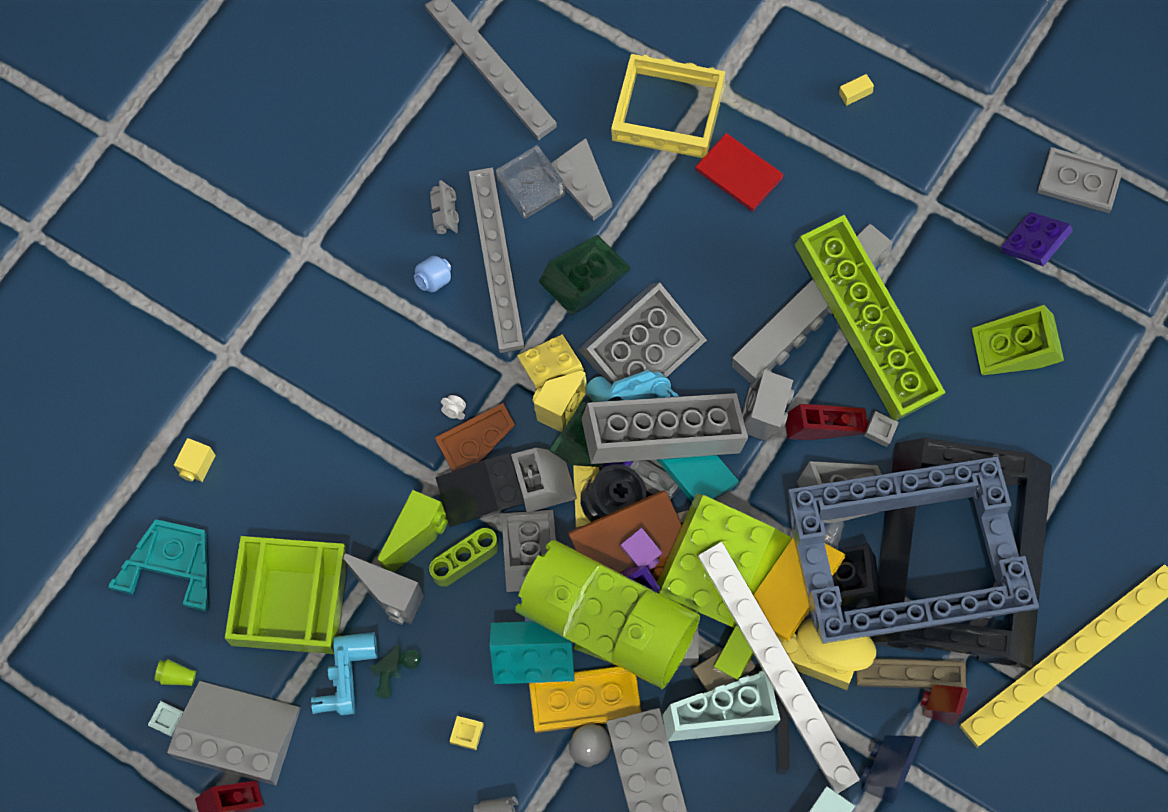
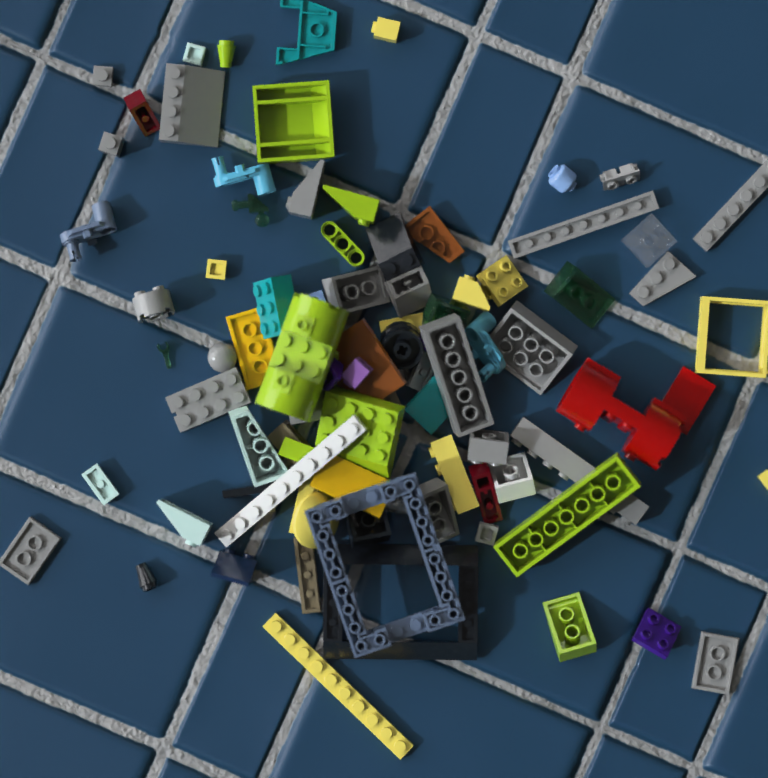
camera: 70 degrees right, 20 degrees up
(453, 407) = (457, 214): white plate -> none
(721, 267) = (651, 432): none -> red cylinder
(789, 458) = (454, 473): none -> light yellow brick
(814, 381) = (513, 479): none -> white slope
(944, 703) = (286, 599): dark red slope -> none

